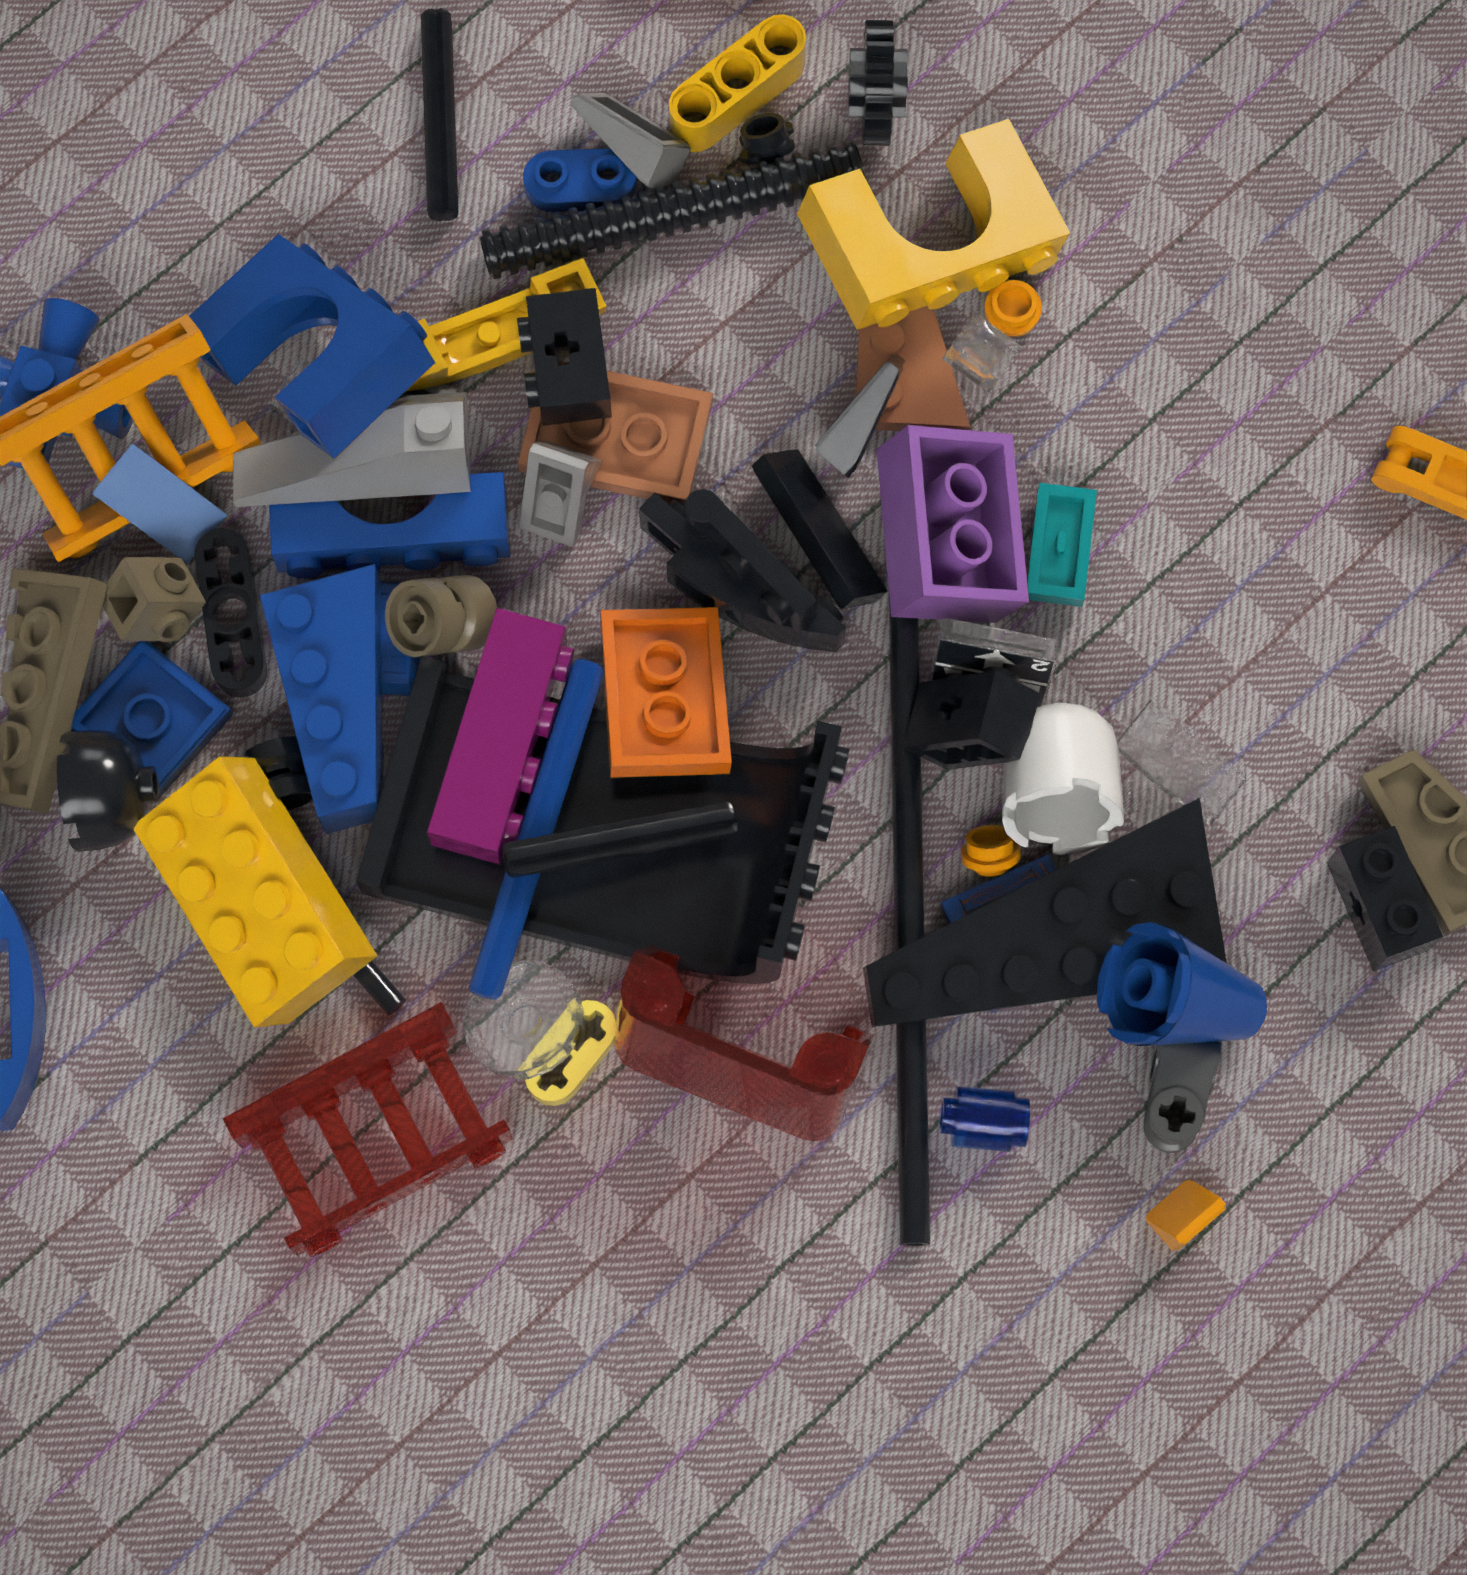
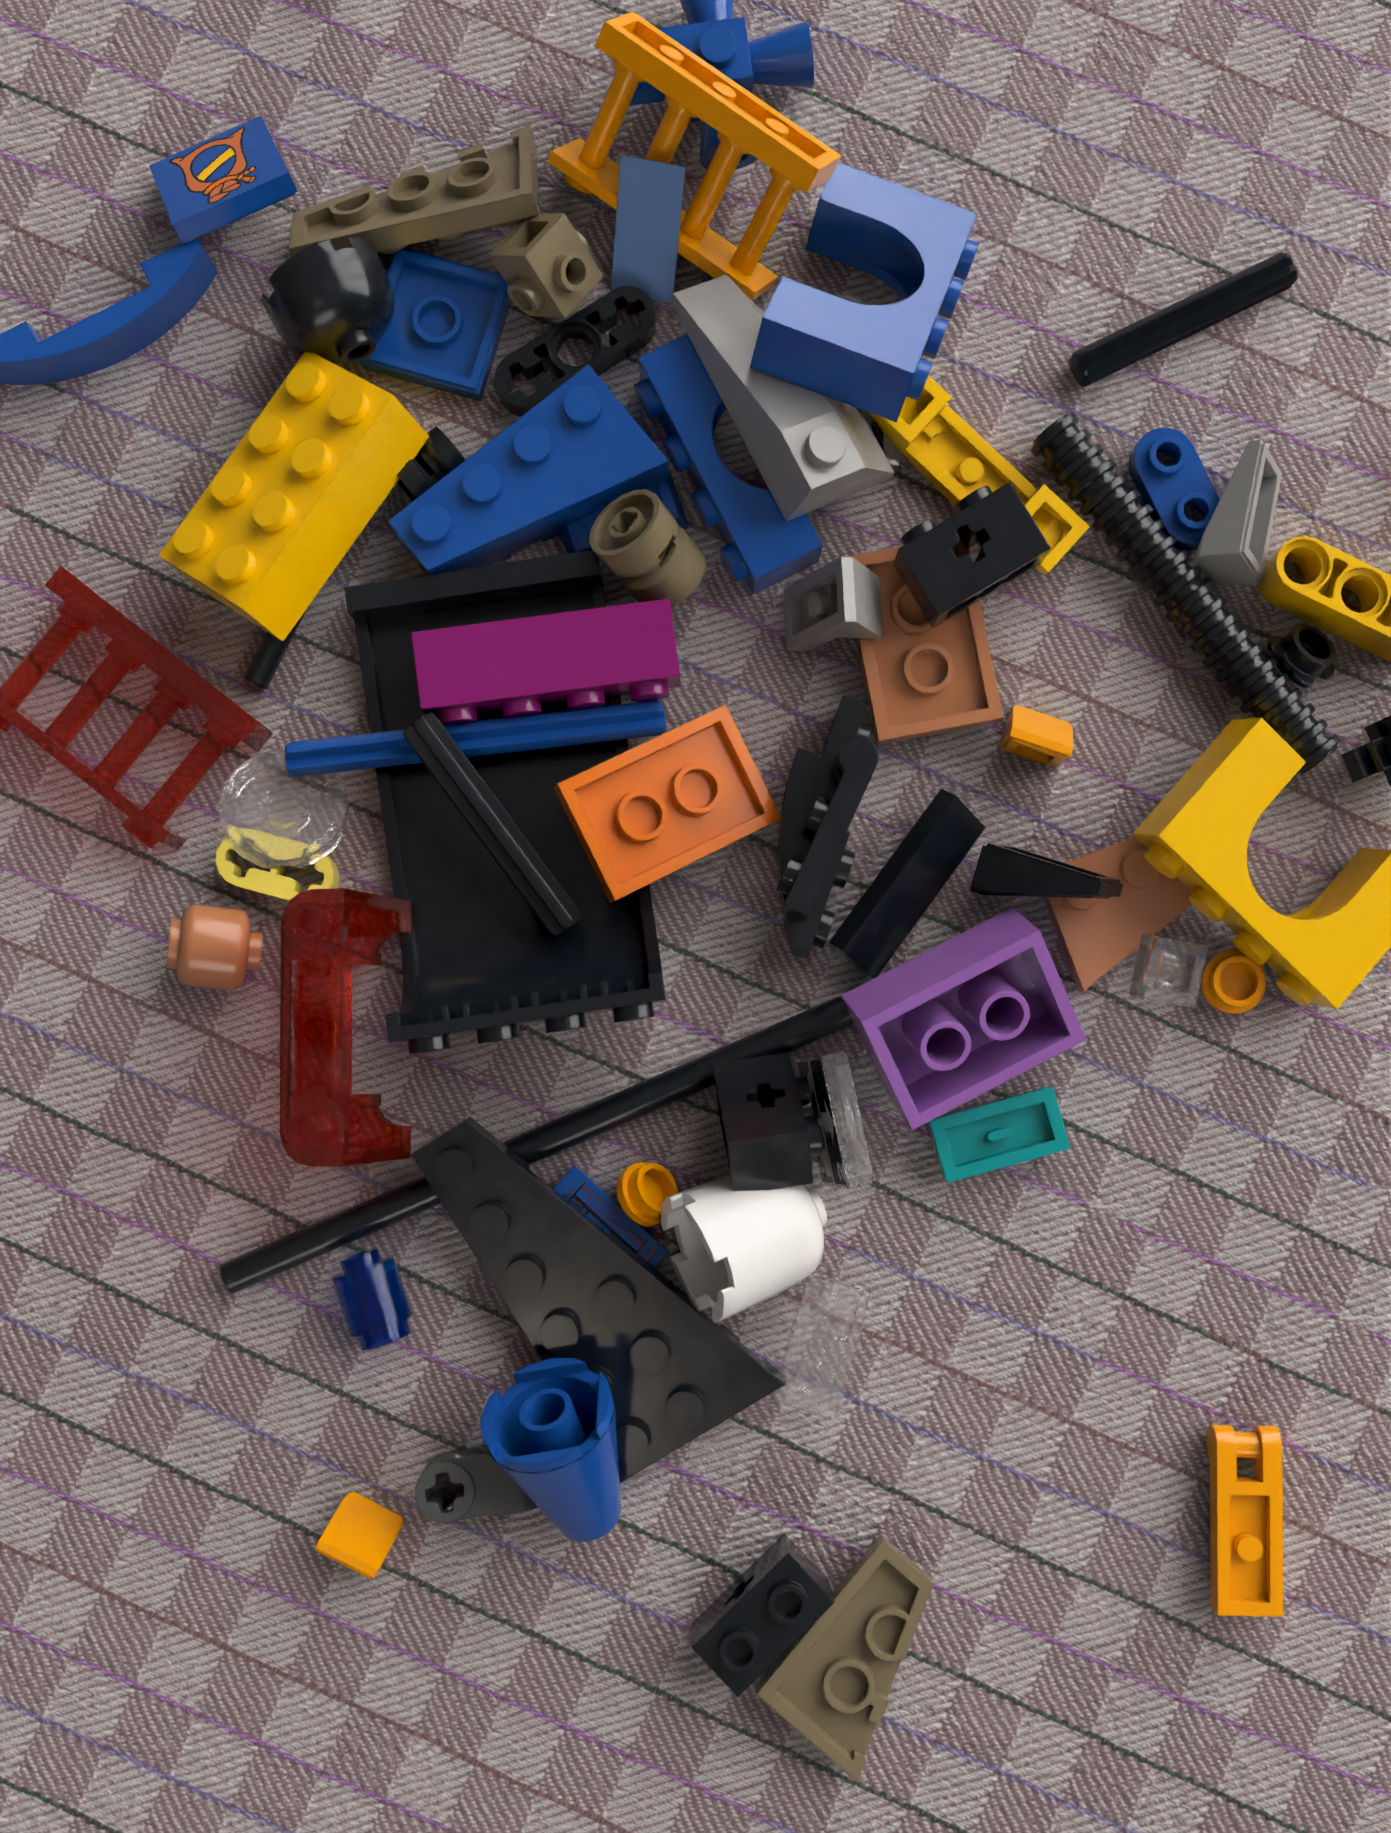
camera: 65 degrees right, 10 degrees up
(618, 1132) = (213, 947): none -> nougat head
(740, 375) = (1037, 736): none -> light orange slope

